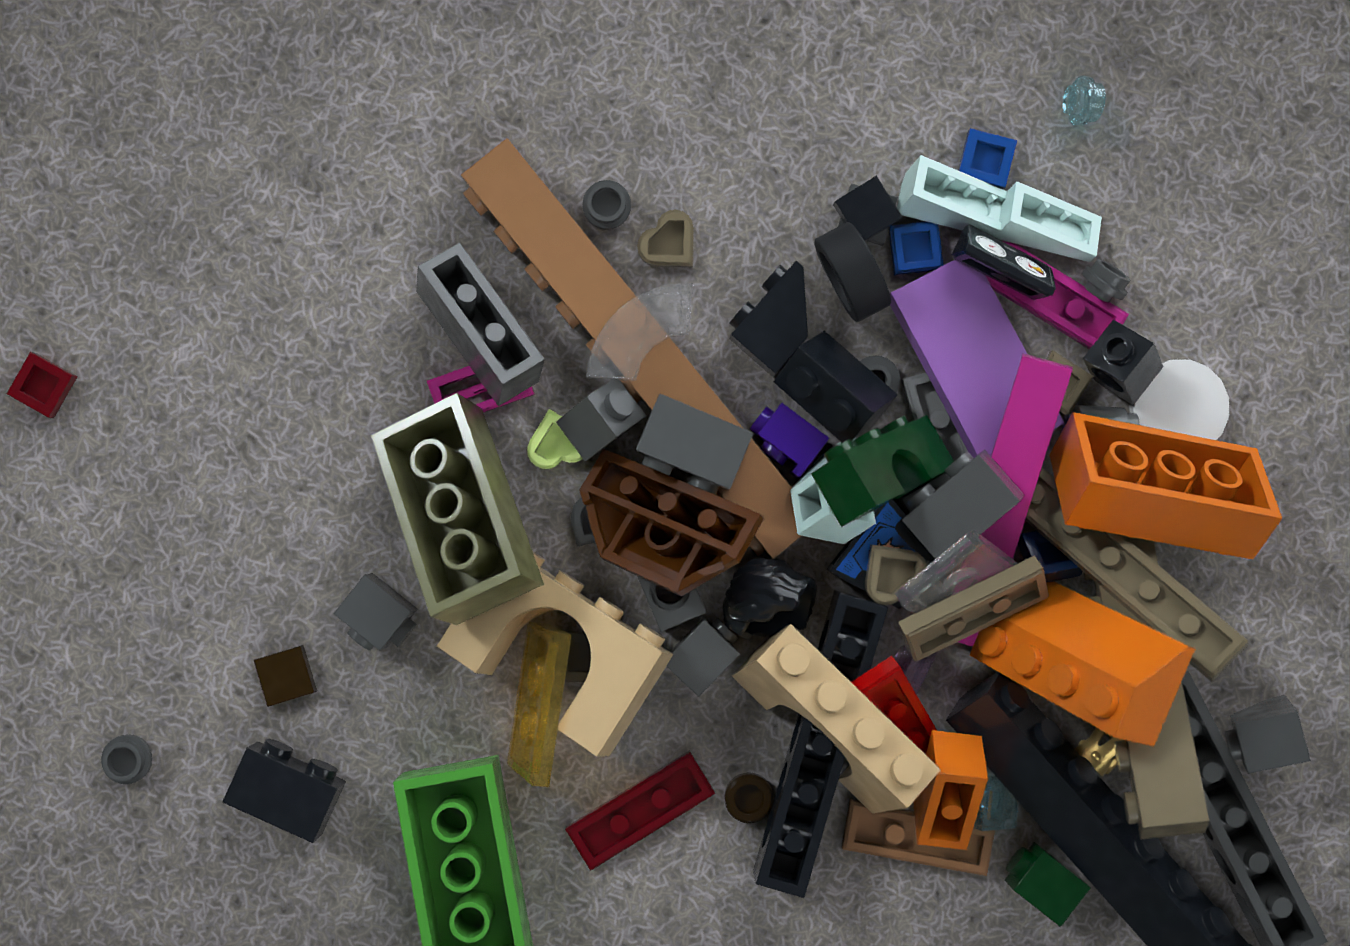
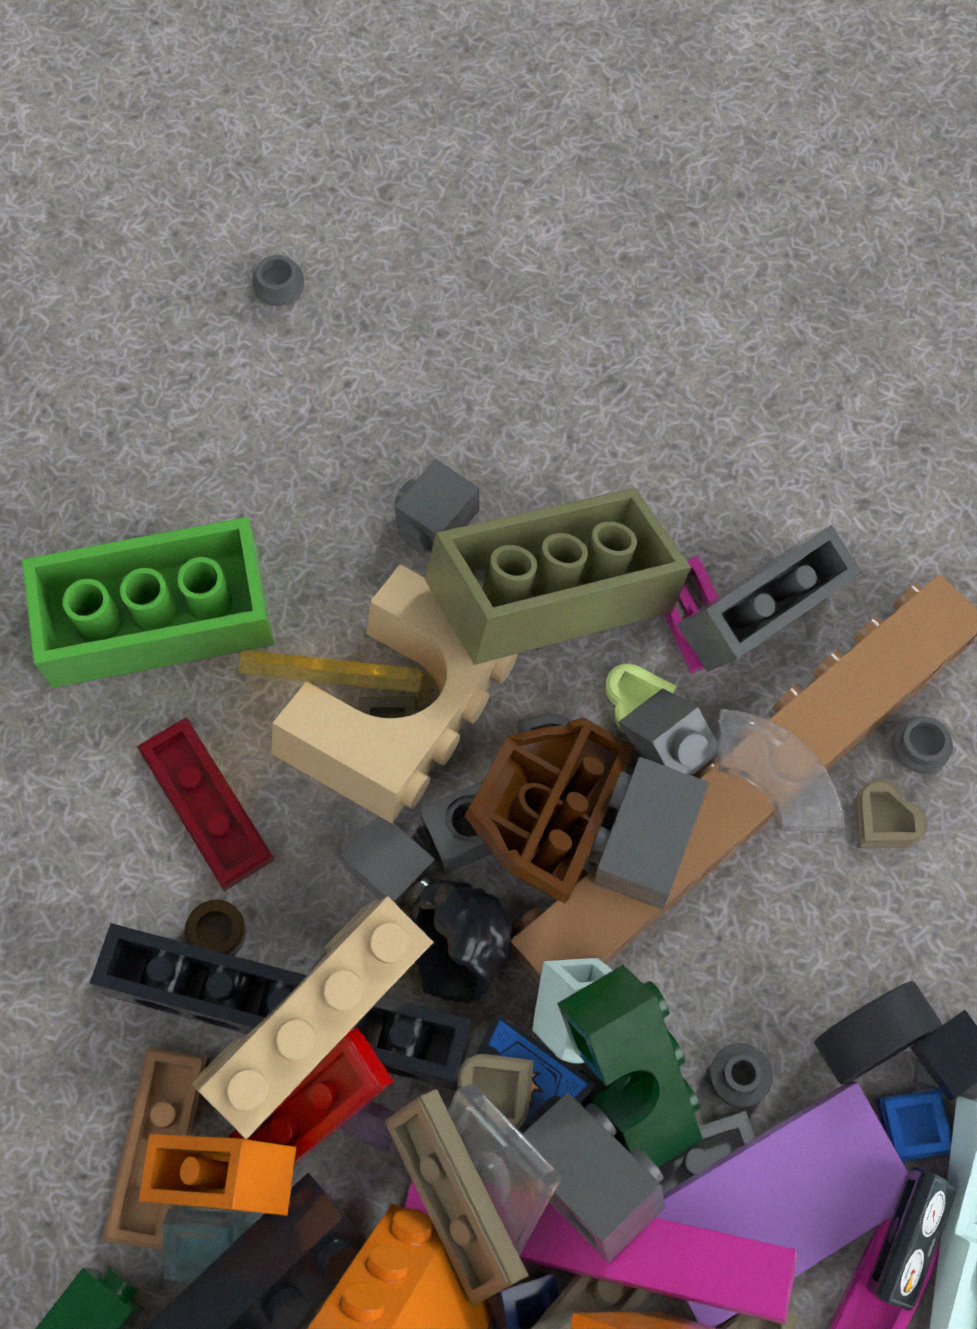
camera: 90 degrees right, 20 degrees down
(41, 385) = (665, 196): dark red tile -> none
(285, 675) = (365, 426): dark brown tile -> none
(285, 789) = (241, 425): black brick -> none
(777, 323) = (805, 946): black slope -> none
(788, 437) = (665, 955): dark purple brick -> none
(835, 387) = (730, 1013): black brick -> none

